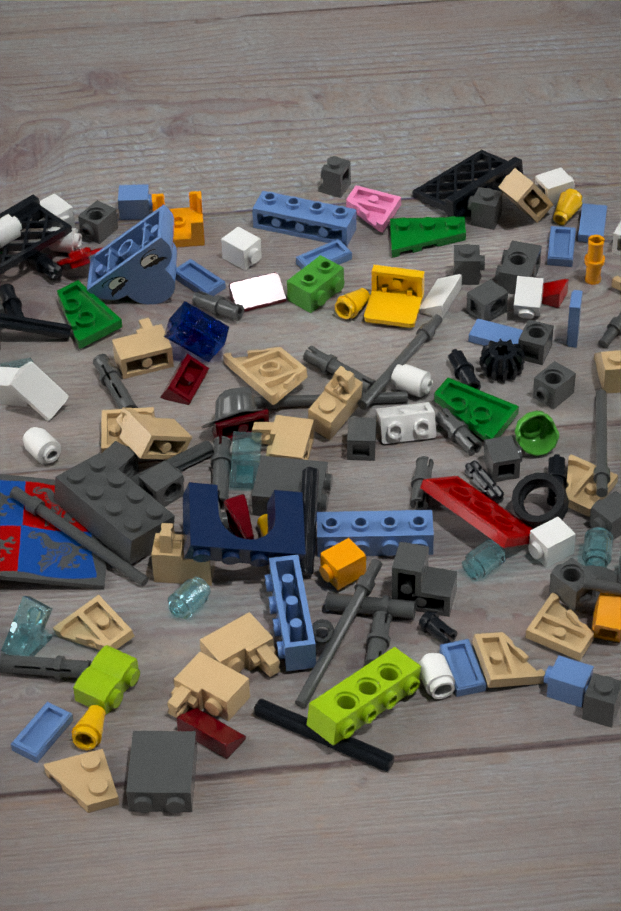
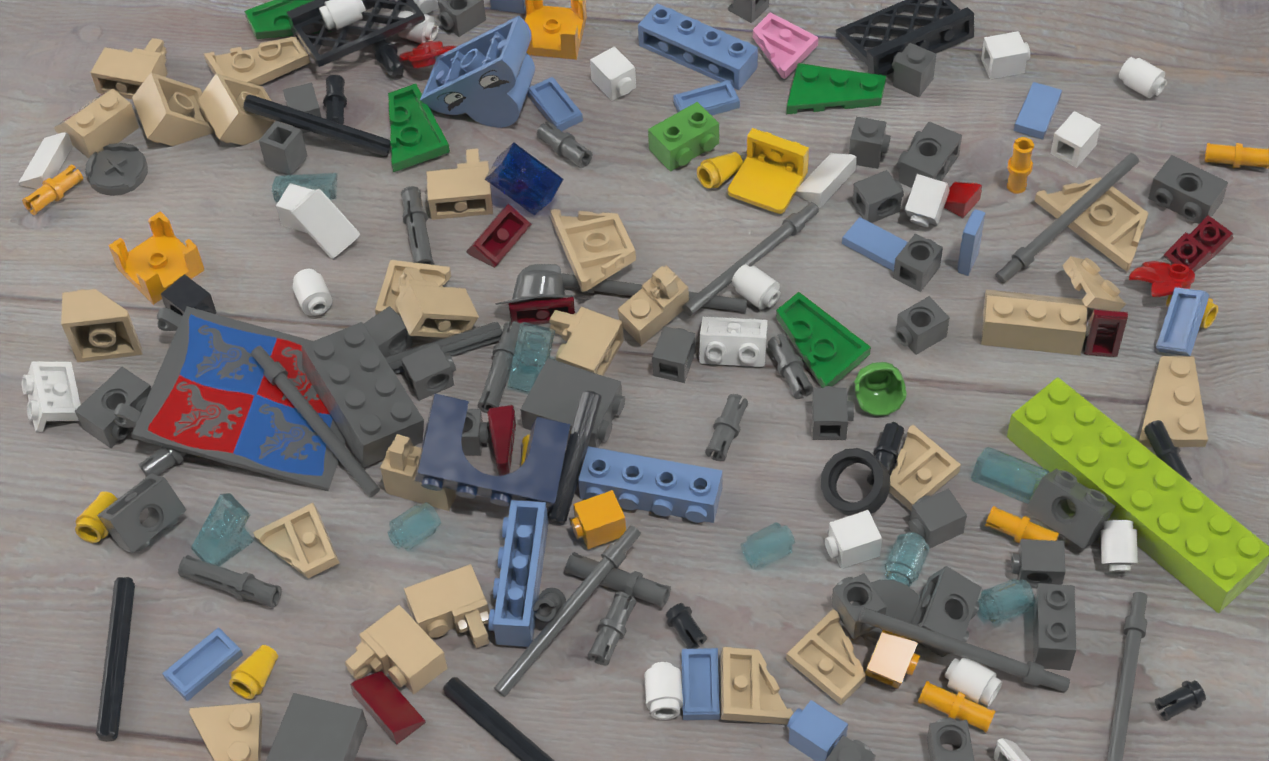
camera: 15 degrees right, 10 degrees up
(107, 679) = (290, 614): lime brick -> none
(257, 291) = (615, 134): slope -> none
(330, 364) = (668, 248): dark grey pin -> none
(363, 696) = (579, 686): lime brick -> none
(415, 581) = (676, 562): dark grey brick -> none
(463, 369) = (822, 284): black axle -> none
(478, 510) = (779, 481): red tile -> none
(484, 481) = (801, 440): black axle -> none
(502, 360) = (871, 279): black gear -> none
(525, 195) = (963, 63): tan hinge -> none
(561, 246) = (991, 135): medium blue tile -> none
(568, 204) = (1013, 82): yellow cone -> none
(601, 473) = (940, 459): dark grey bar -> none

